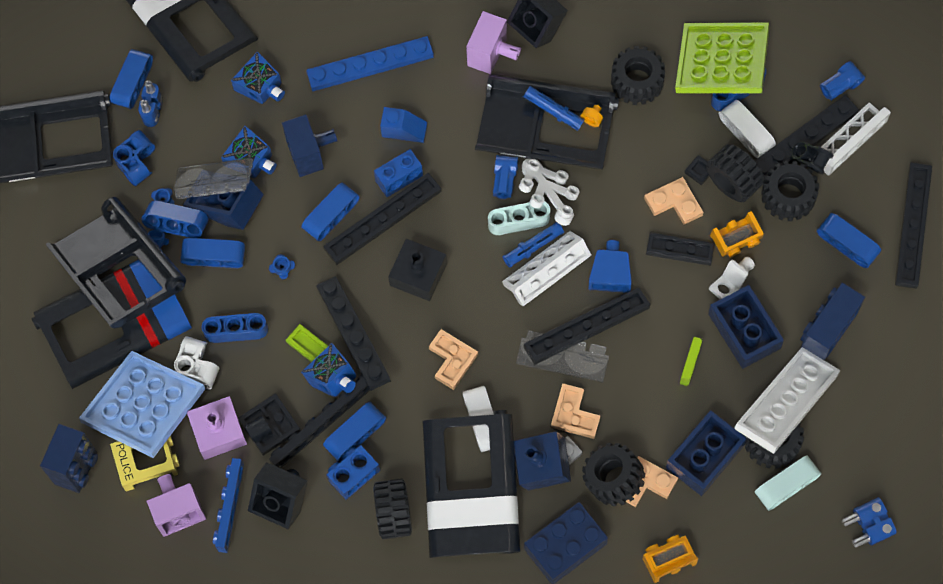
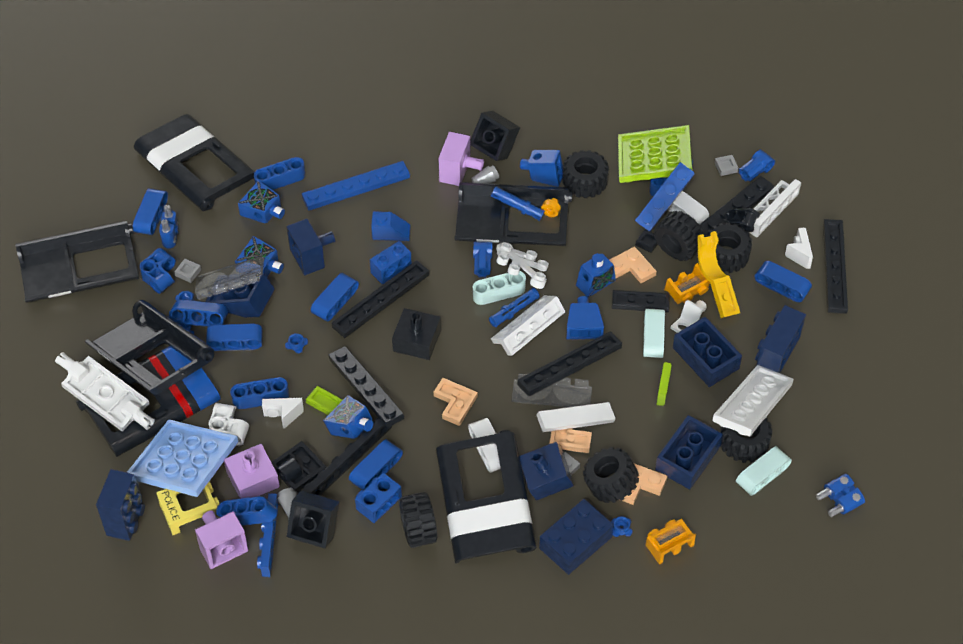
camera: 10 degrees left, 15 degrees down
(62, 316) = (104, 392): none -> white plate
(168, 160) = (187, 270): none -> light grey plate
(206, 478) = (249, 510): none -> blue beam
(253, 464) = (285, 499): none -> light grey cone
(263, 350) = (286, 407): none -> white slope
(290, 35) = (281, 173): none -> blue beam
(522, 66) = (487, 175): none -> light grey cone
(584, 396) = (575, 417): none -> white tile
(590, 62) = (544, 166): none -> blue torso
(618, 528) = (621, 521): none -> blue plate
(633, 212) = (595, 275): none -> blue torso
(689, 294) = (654, 333): none -> light aqua beam
(725, 119) = (665, 197): none -> blue plate
(772, 235) = (719, 281): none -> yellow piece
(806, 77) = (726, 165): none -> light grey plate
(876, 203) = (800, 250): none -> white slope

